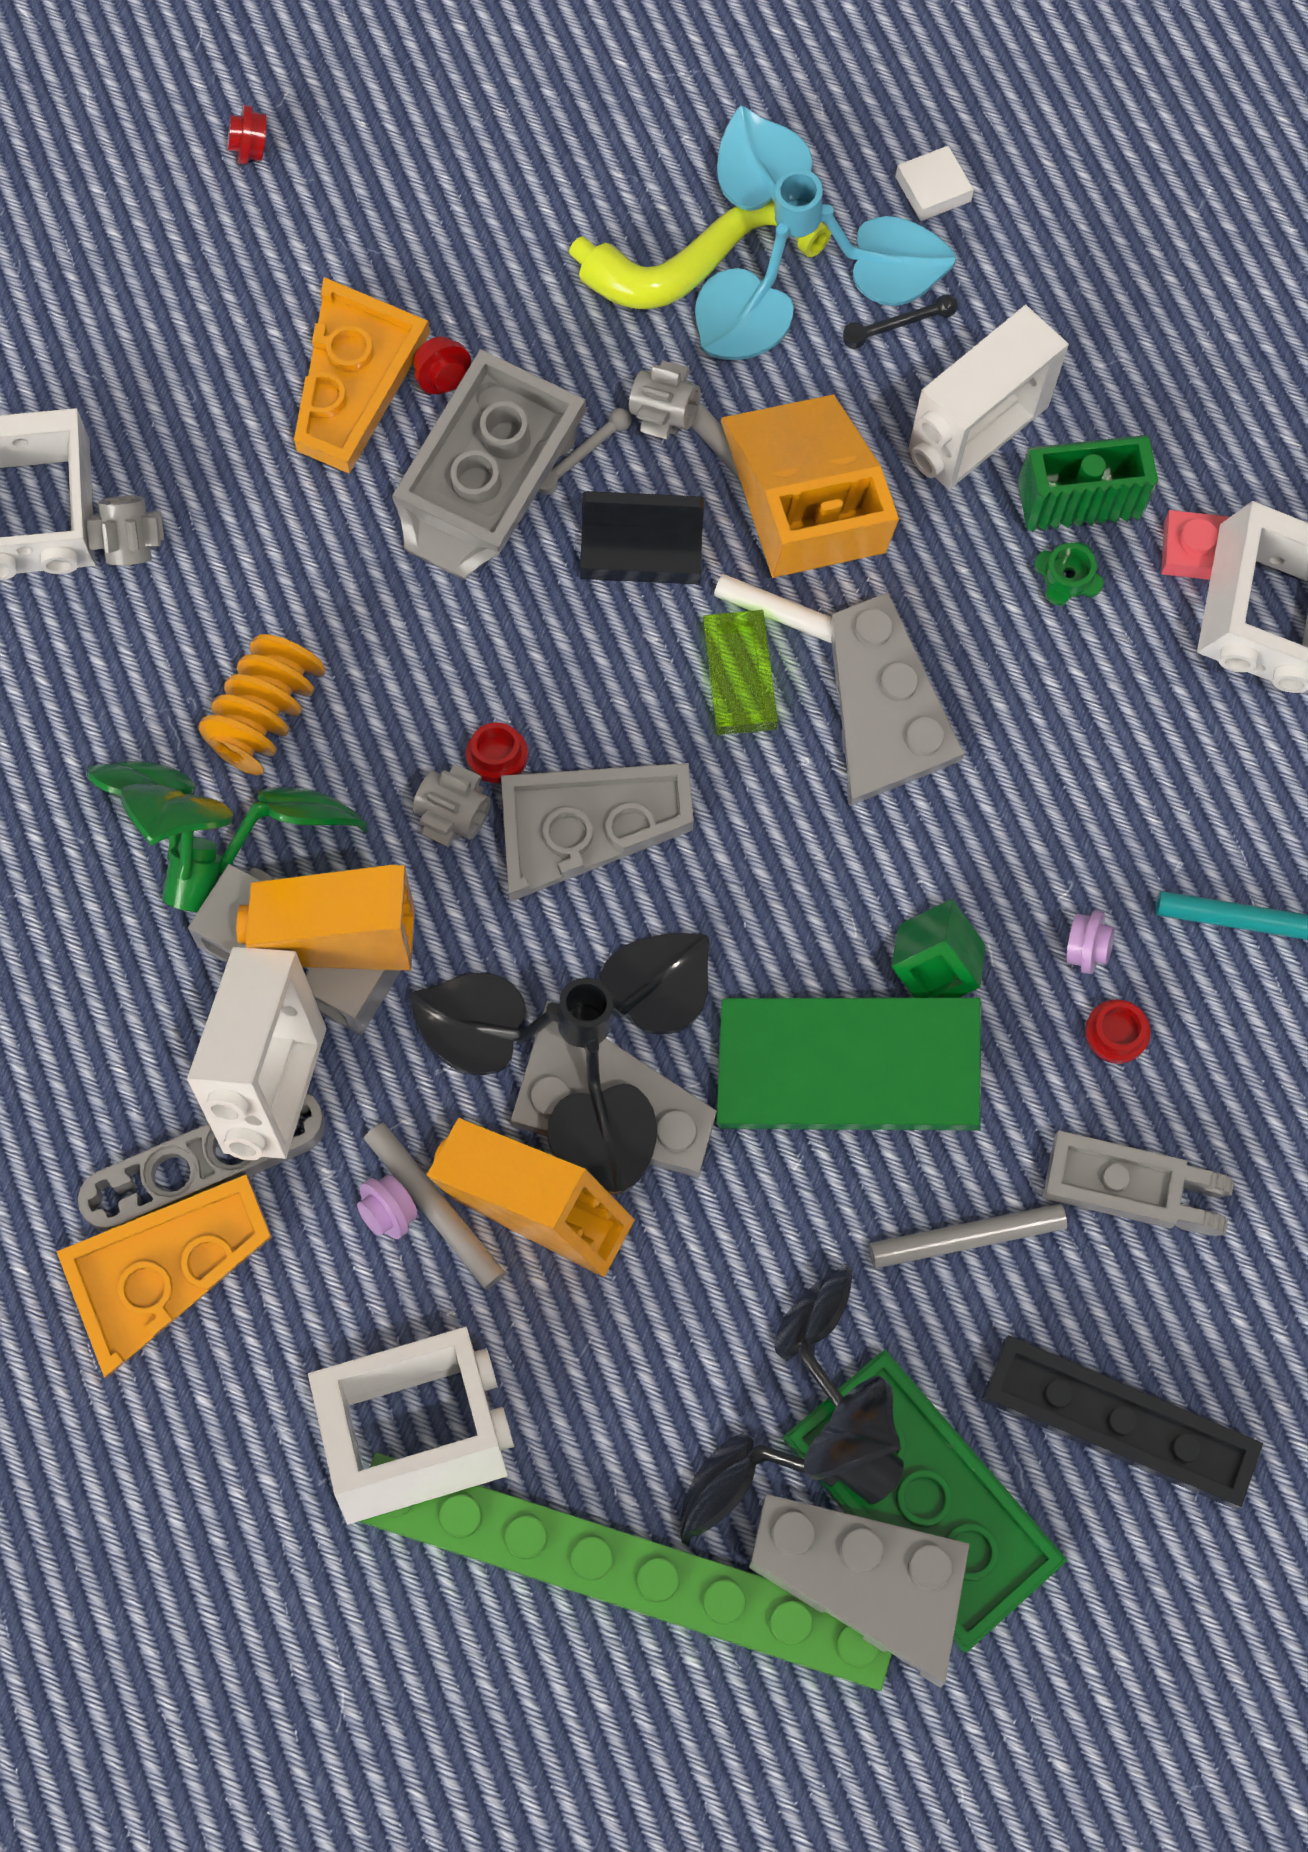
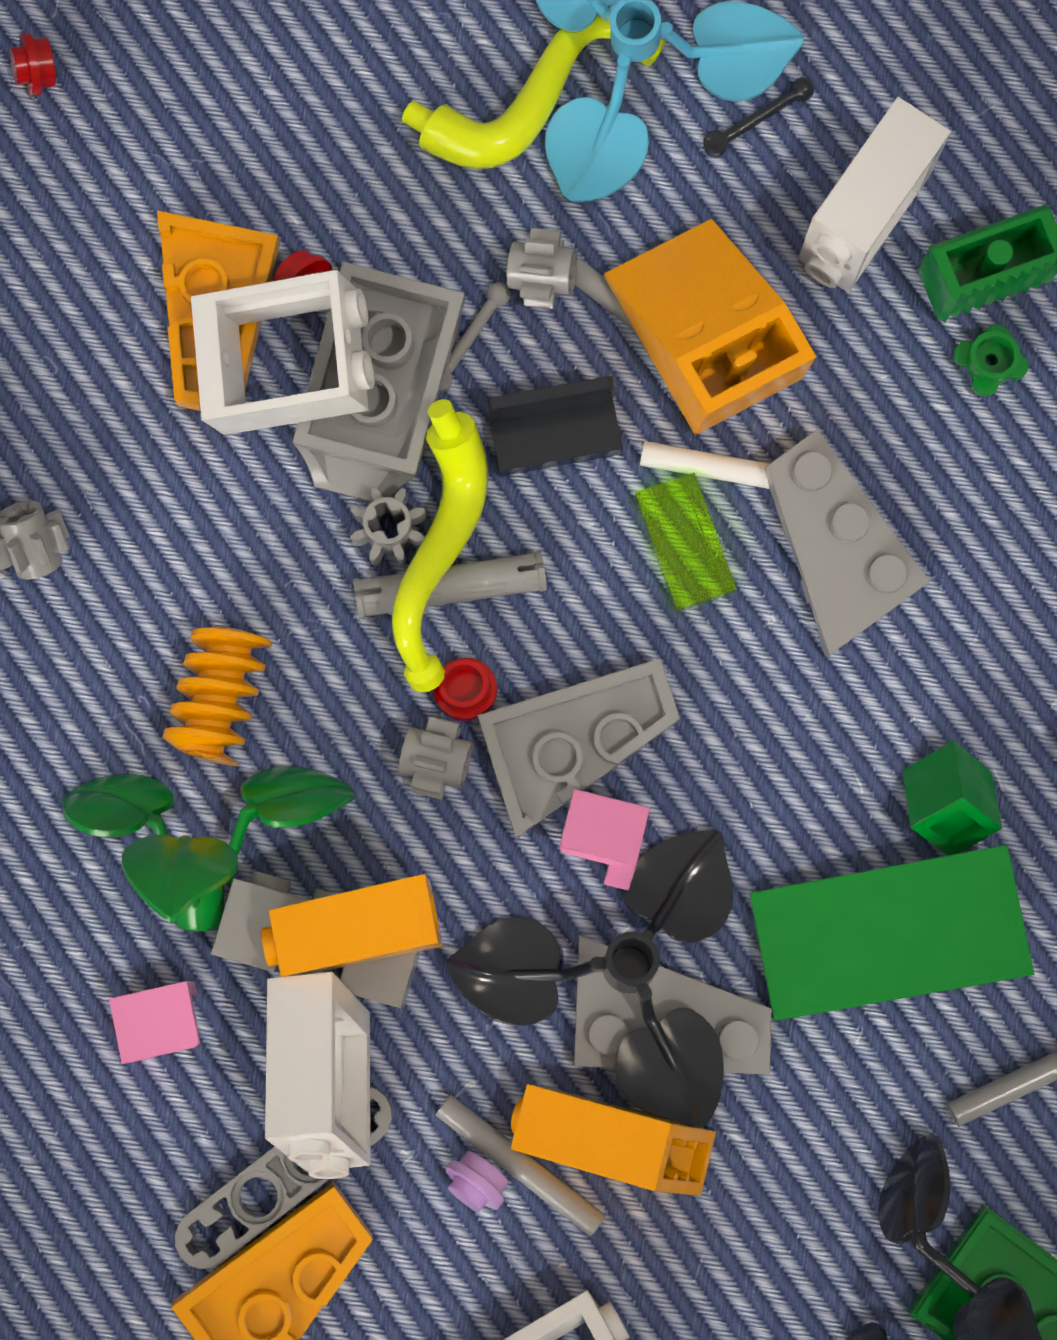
camera: 10 degrees left, 10 degrees up
(117, 982) = (155, 1021): none -> bright pink panel
(344, 400) = (220, 360): none -> white window
(457, 576) = (399, 514): none -> light grey gear
(504, 657) = (459, 584): none -> light grey pin
(545, 568) = (464, 491): none -> neon yellow animal
(599, 904) = (605, 833): none -> bright pink panel

